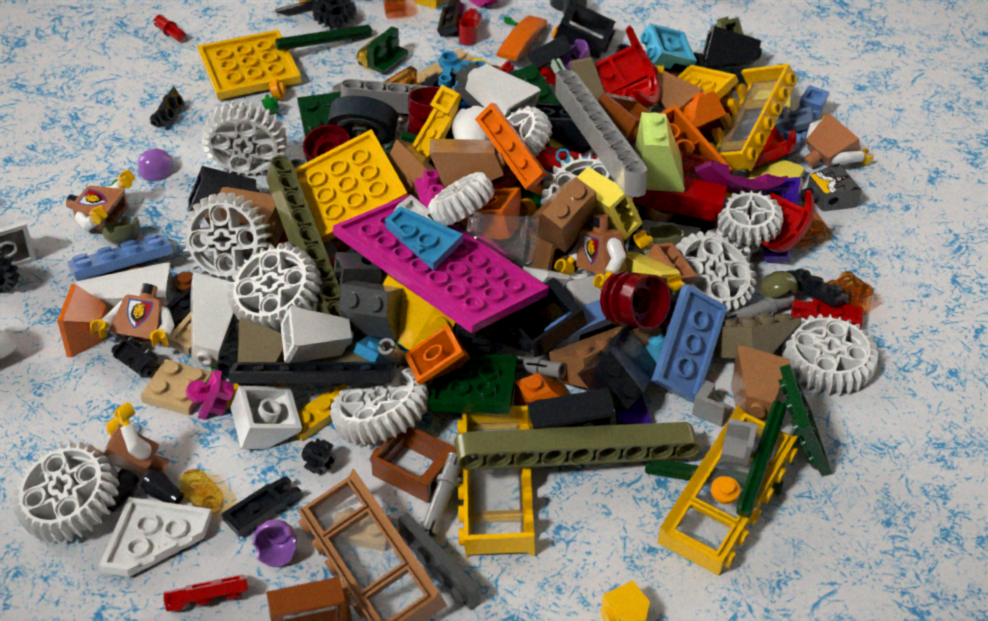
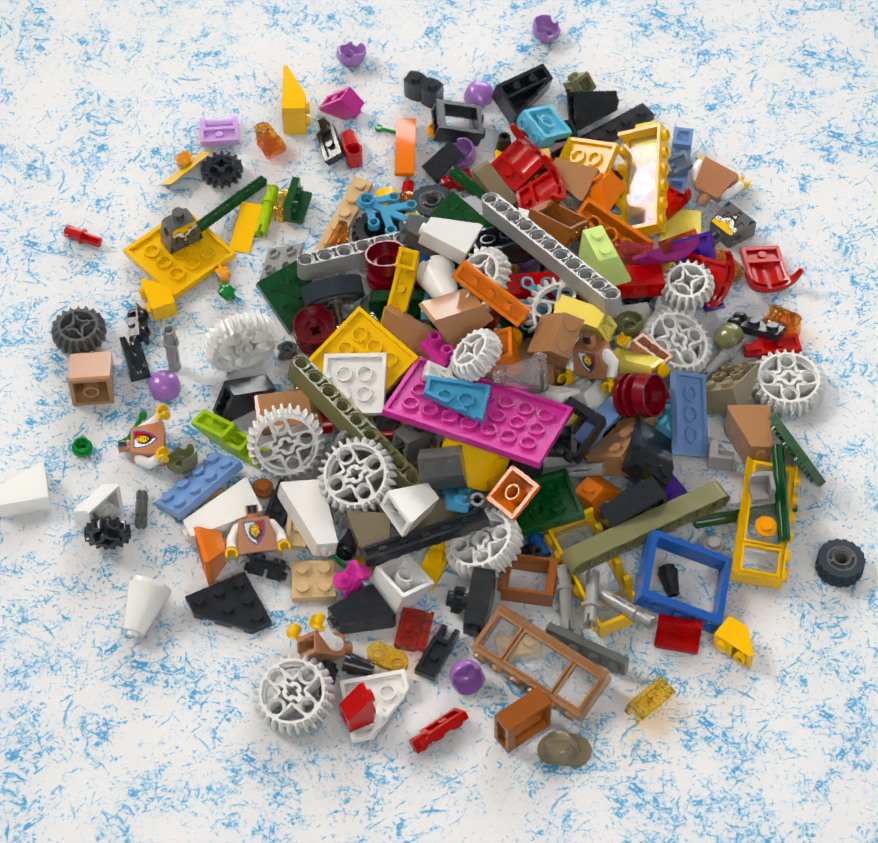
camera: 20 degrees left, 10 degrees up
(35, 192) = (79, 443): none -> green plate
(50, 264) = (141, 509): none -> dark grey axle
(73, 382) = (230, 605): none -> black plate
(85, 136) = (91, 378): none -> medium nougat slope
(107, 97) = (87, 322): none -> dark grey gear
(119, 530) = (358, 708): none -> red slope
(141, 133) = (134, 359): none -> black hinge
(173, 121) = (171, 344): none -> light grey pin
(174, 212) = (224, 434): none -> lime slope
(199, 93) = (158, 298): none -> yellow slope
(202, 433) = (361, 612): none -> black slope
(250, 471) = (413, 630): none -> clear red plate
(254, 38) = (179, 230): none -> dark grey torso
(326, 61) = (245, 227): none -> yellow sticker
(334, 195) = (359, 378): none -> white plate
(345, 451) = (479, 601): none -> black slope
(350, 56) = (266, 210): none -> lime pin
(431, 428) = (531, 548): none -> black arm
(447, 425) = (538, 539): none -> blue pin
(463, 509) = (591, 605): none -> light grey pin
(511, 534) = (634, 612): none -> light grey pin
(562, 583) = (678, 634): none -> red panel
(570, 551) = (667, 606): none -> blue window
(583, 514) = (669, 579): none -> black cone
(623, 15) = (478, 93): none -> medium lavender hair
(657, 497) = (714, 543): none -> light grey plate
(674, 15) = (521, 91): none -> black wedge
(808, 568) = (830, 559): none -> black wheel
(854, 239) = (766, 269): none -> red piece

